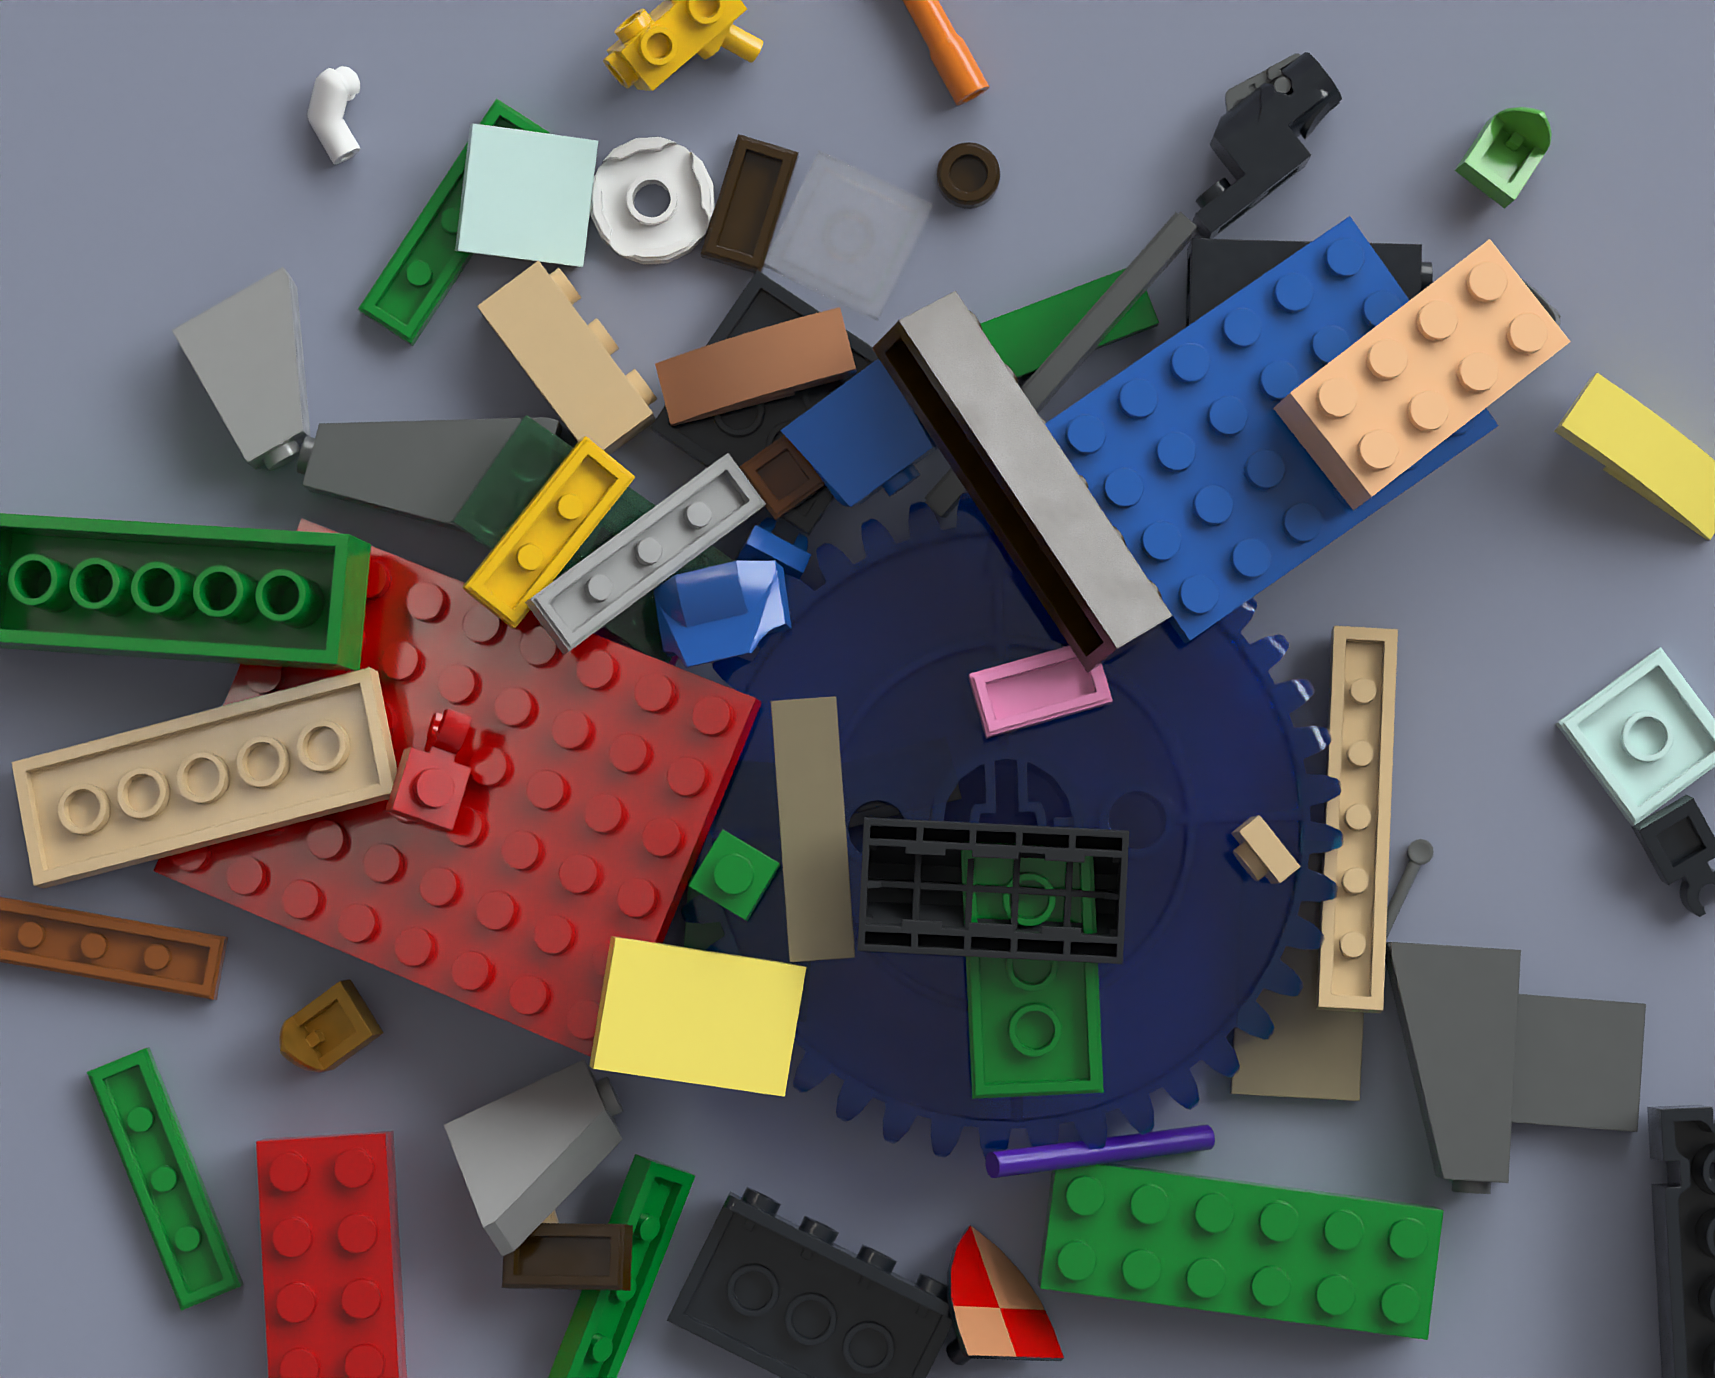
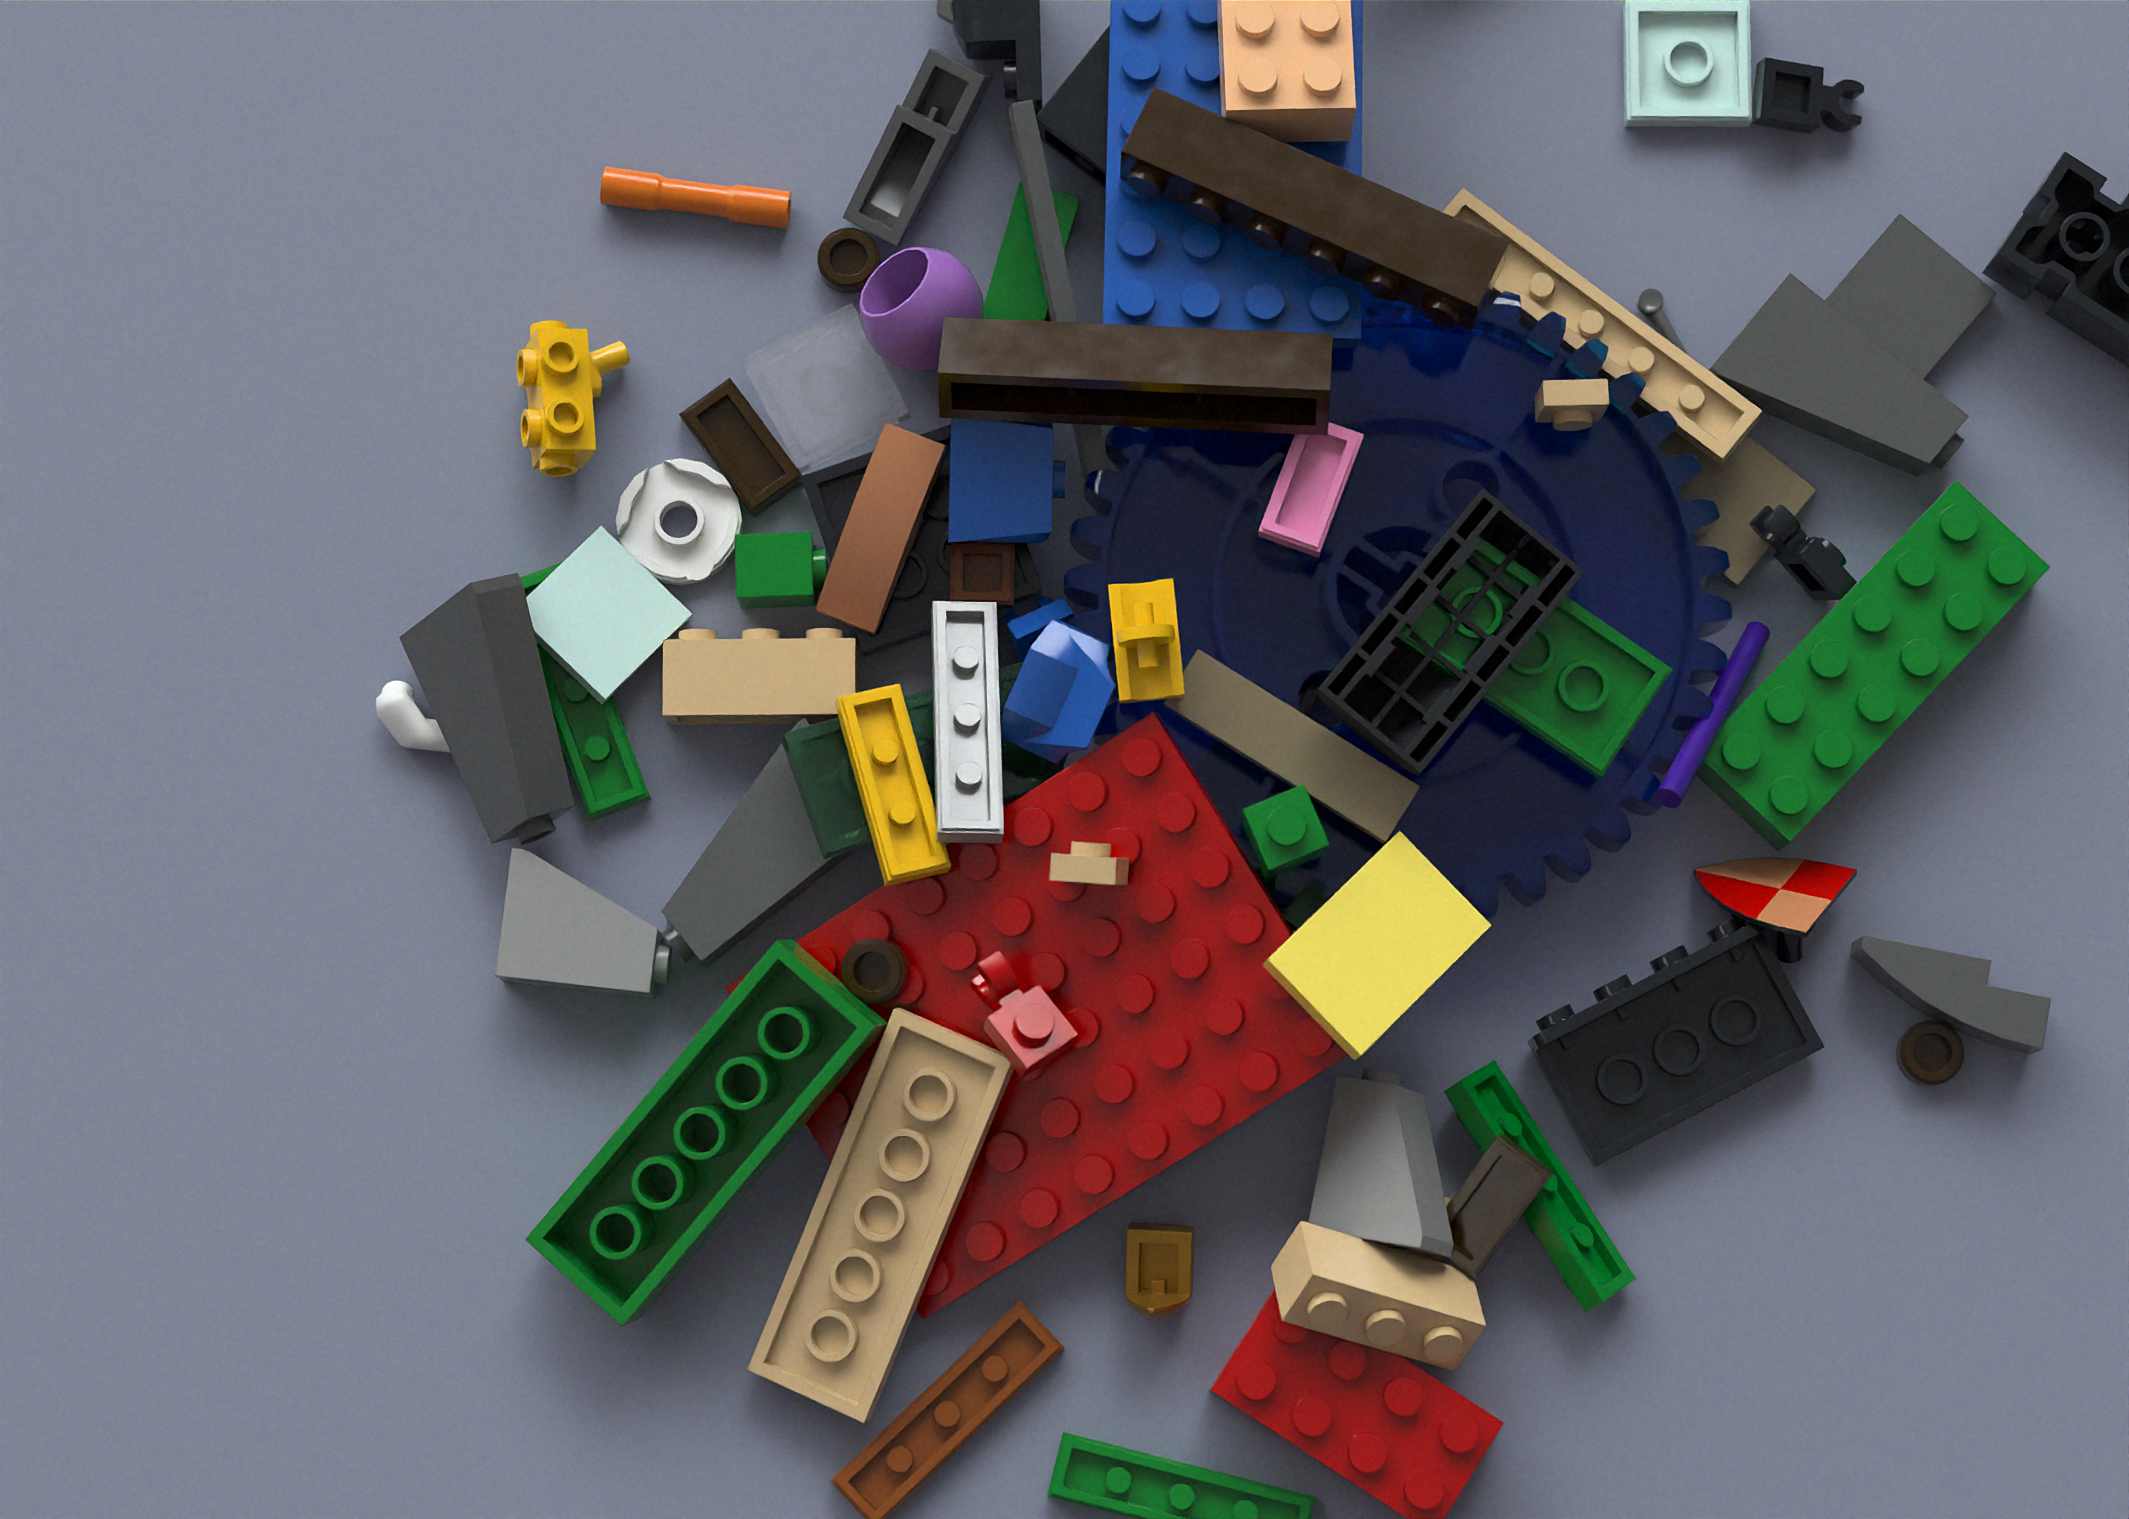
camera: 55 degrees left, 5 degrees down
(385, 168) = (494, 706): none -> dark grey slope
(393, 629) = (875, 970): none -> dark brown tile
(425, 1220) = (1377, 1296): none -> tan brick
(590, 739) = (1089, 865): none -> tan plate
(668, 309) = (778, 570): none -> green brick
(808, 650) = (1146, 641): none -> yellow hips
(968, 253) = (908, 302): none -> medium lavender helmet
(1103, 159) = (917, 146): none -> dark grey slope
(1263, 523) = (1312, 210): none -> dark brown brick
(1293, 1142) = (1809, 560): none -> black plate

